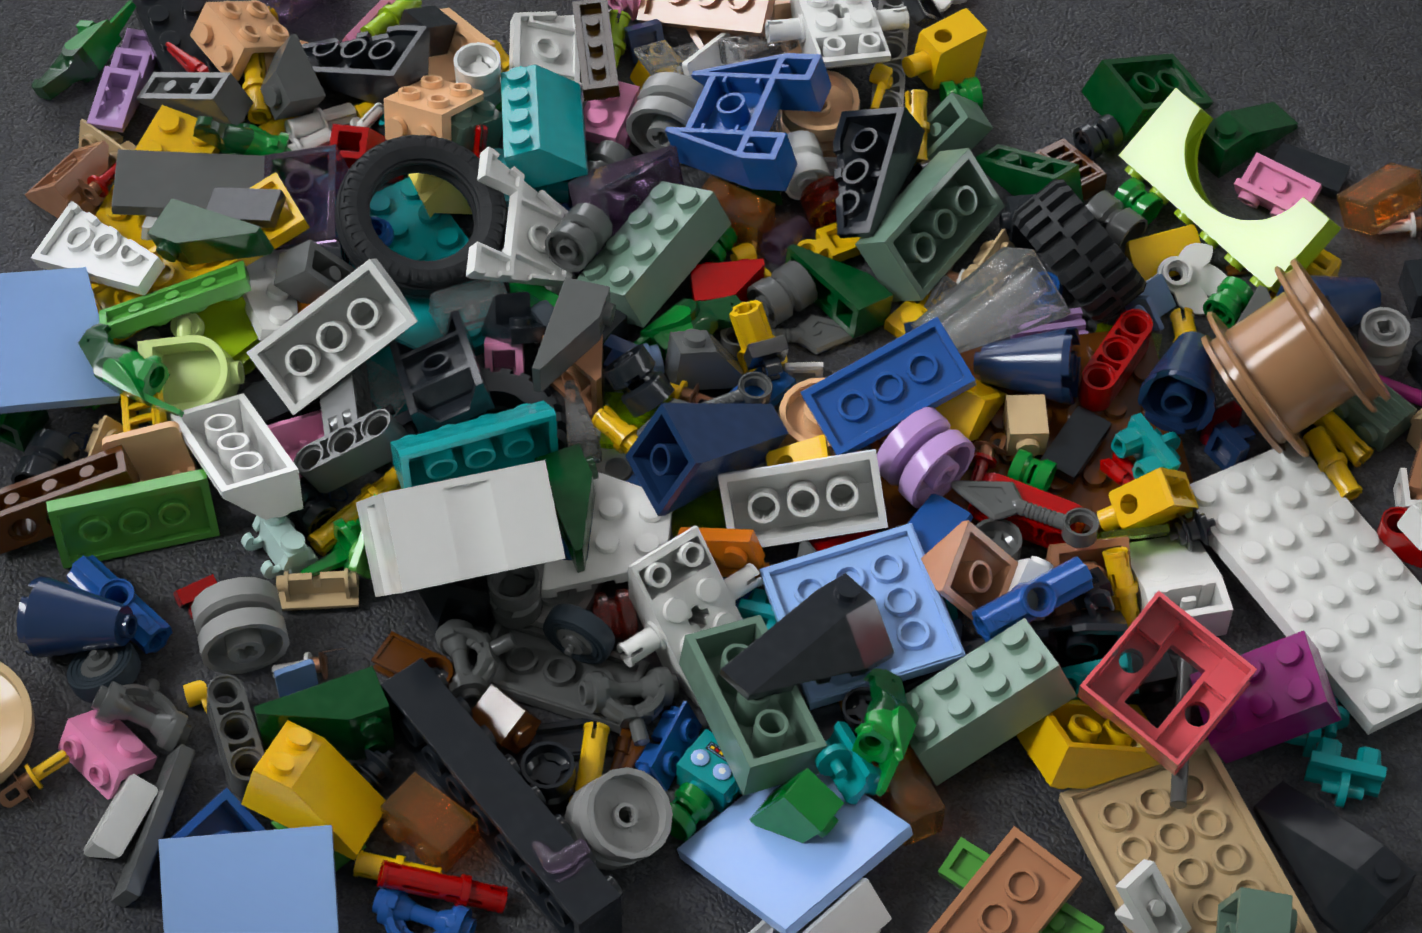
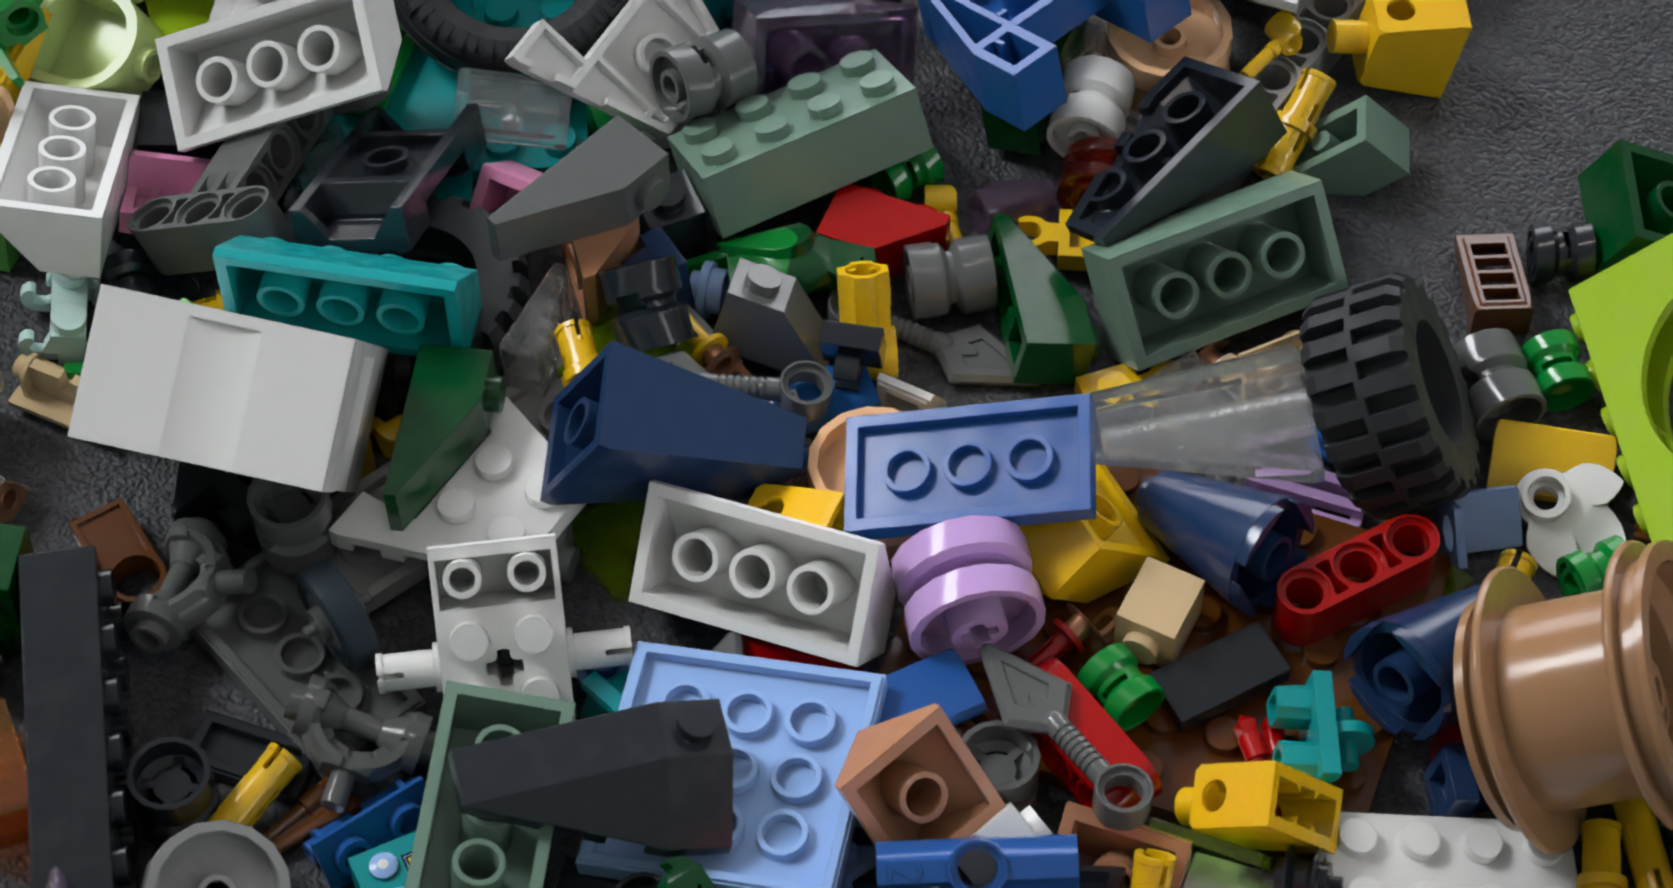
camera: 30 degrees right, 0 degrees up
(506, 718) = (172, 685): reddish brown brick -> none
(511, 320) = (542, 142): black slope -> none
(616, 613) = (405, 615): clear red wheel -> none
(732, 548) = (609, 591): orange plate -> none
(747, 212) = (964, 136): clear orange brick -> none
(969, 88) = (1406, 106): green wheel -> none
(1027, 172) = (1412, 245): dark green slope -> none

